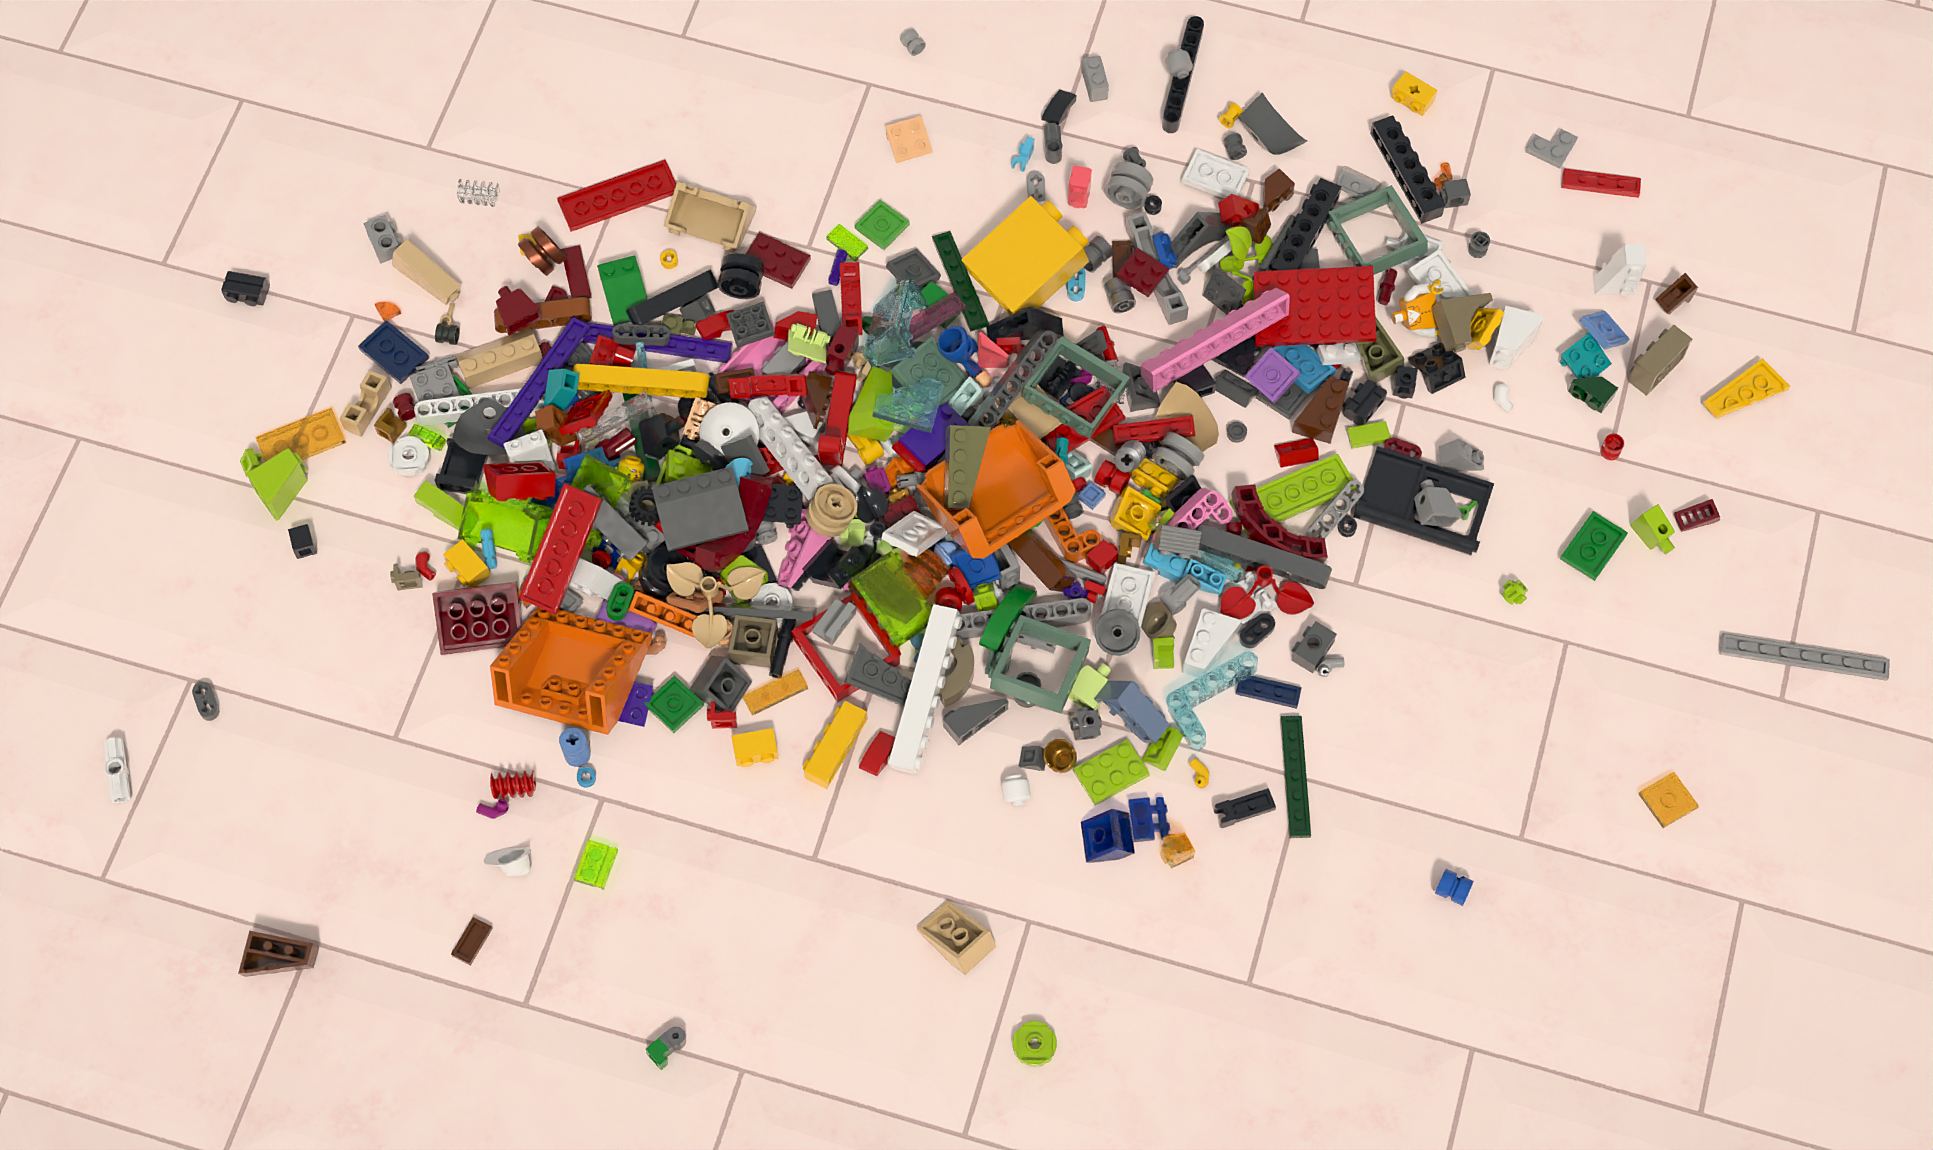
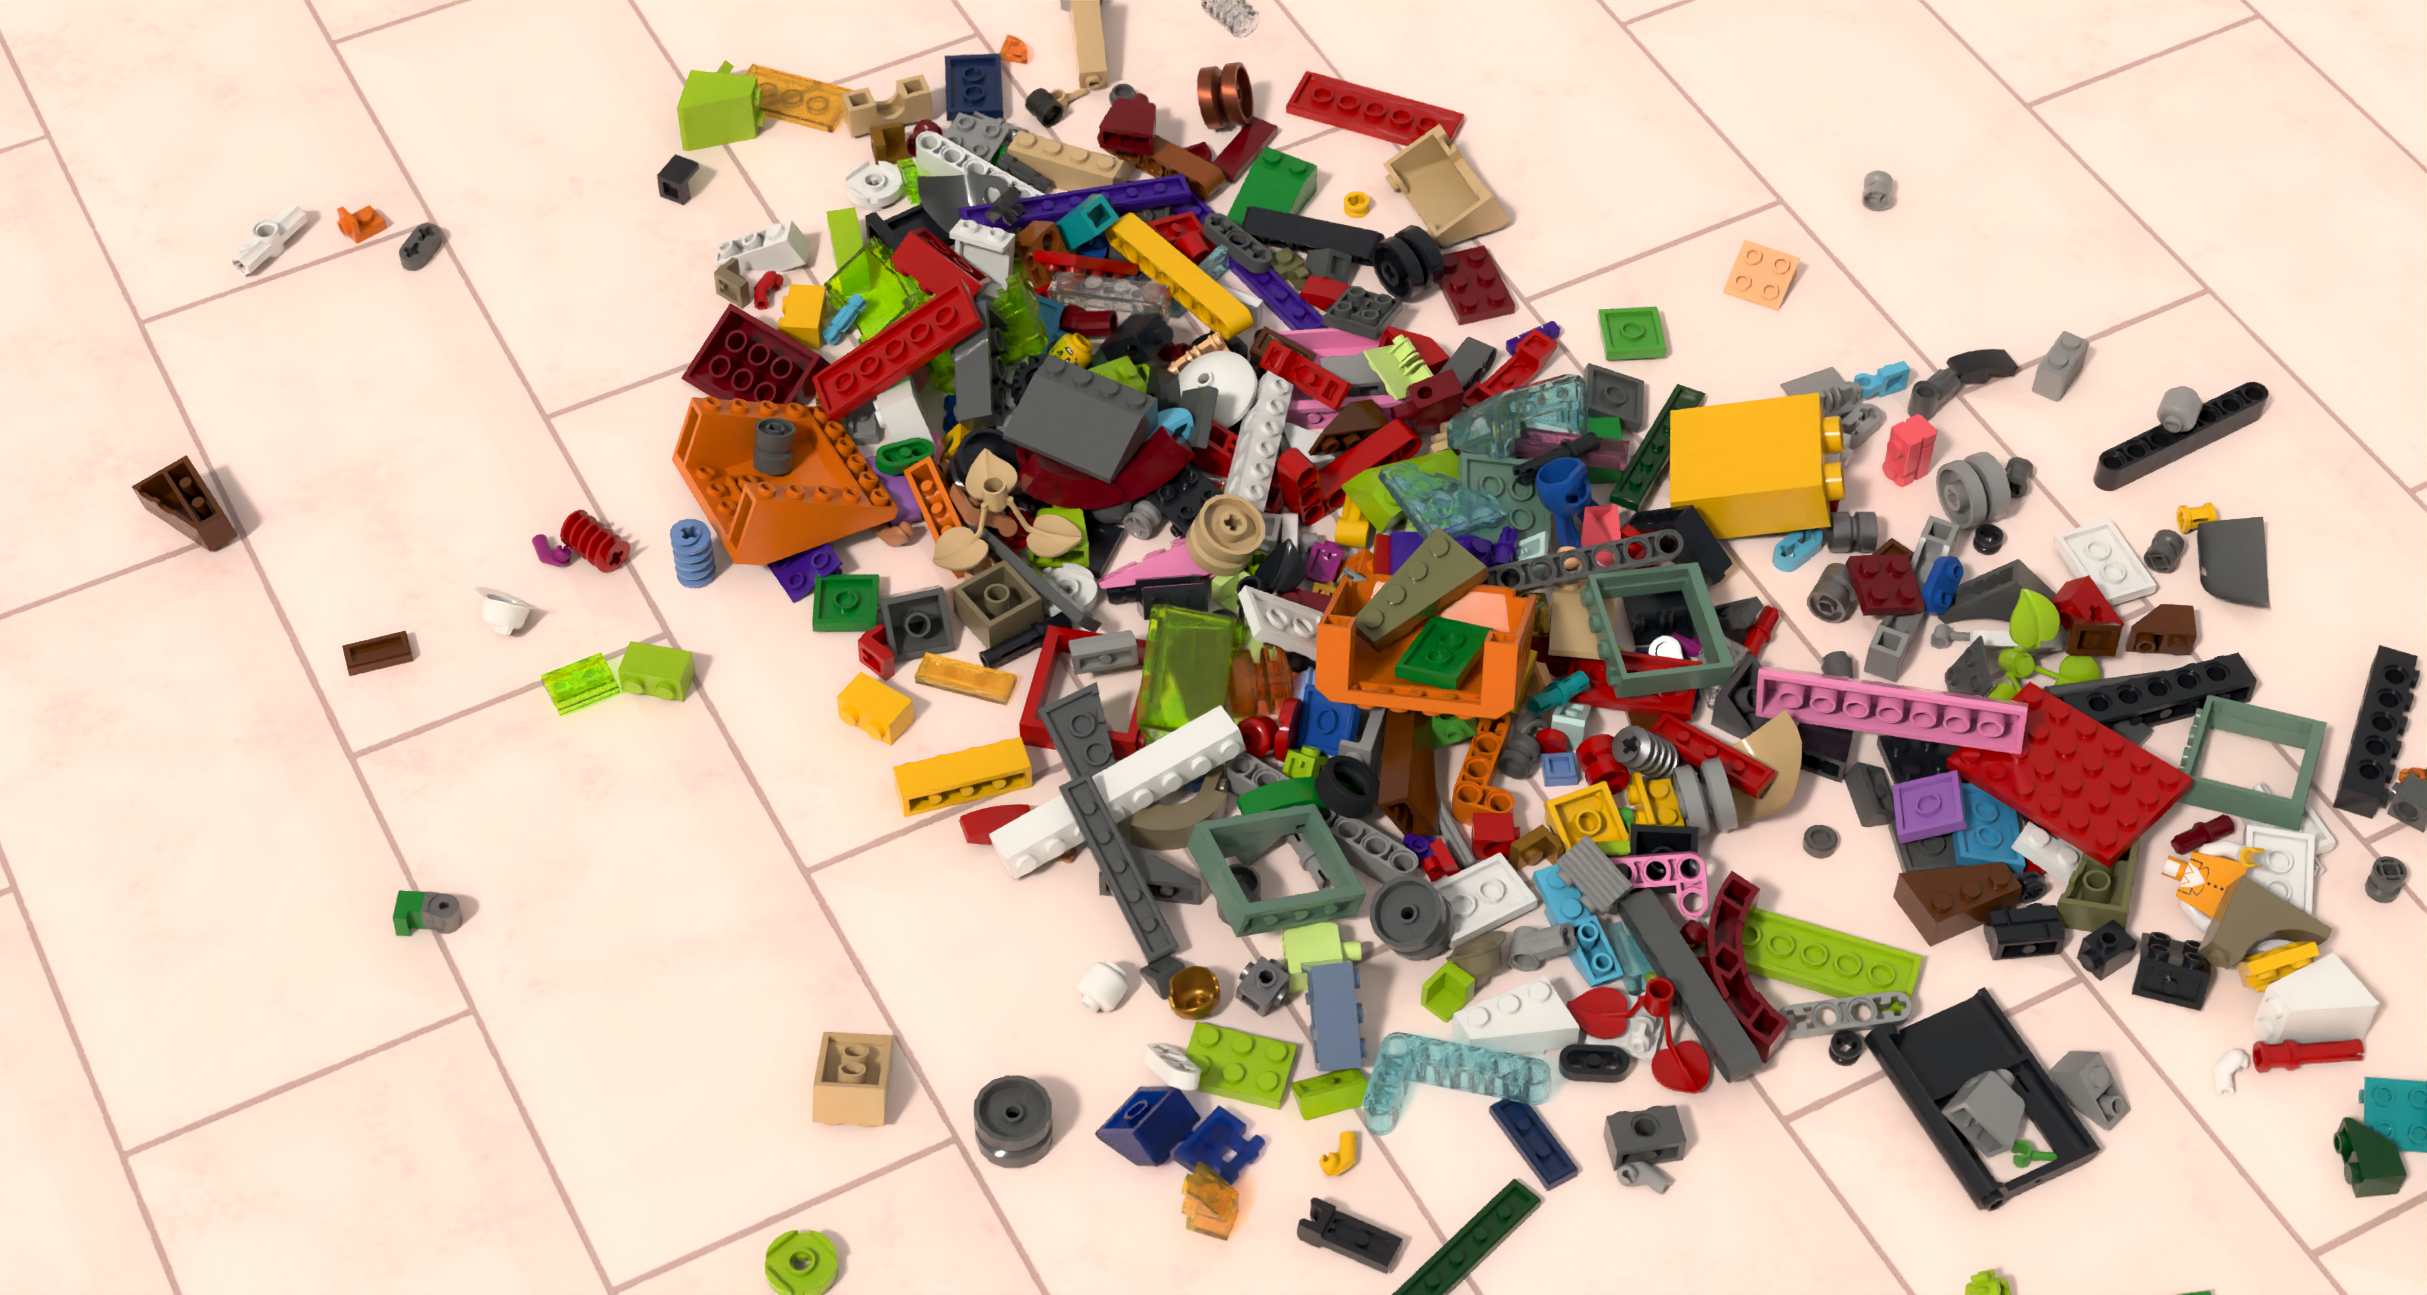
camera: 45 degrees right, 15 degrees down
(155, 716) = (360, 224): none -> orange bracket
(398, 544) = (766, 250): none -> white slope
(479, 293) = (1121, 91): none -> dark grey plate
(483, 383) = (1023, 172): none -> dark grey axle
(514, 416) = (1005, 205): none -> clear smoke tile
(548, 653) = (774, 446): none -> dark grey wheel
(585, 770) = (672, 590): dark azure bush -> none
(601, 559) = (939, 412): red plate -> none
(627, 824) = (656, 671): none -> lime brick
(845, 240) = (1573, 324): clear neon green tile -> none
(937, 323) = (1573, 449): none -> black pin
(959, 403) = (1505, 549): none -> dark purple axle
(967, 726) = (1119, 868): none -> dark grey tile
(1003, 186) = (1836, 395): none -> light grey hinge
(1003, 486) = (1443, 653): none -> green plate
(1021, 601) = (1339, 798): none -> black tyre
(1048, 879) = (1013, 1121): none -> dark grey wheel
(1094, 800) = (1172, 1066): none -> white beam
(1162, 336) = (1837, 664): none -> dark grey cone
(1296, 452) = (1872, 920): red slope -> none
(1356, 183) = (2285, 693): light grey panel -> none
(1368, 434) = (1991, 972): lime tile -> none
(1403, 447) = (2022, 1021): dark red beam -> none
(1520, 367) = (2292, 1055): none -> red pin
(1612, 447) = (2324, 1241): red wheel -> none

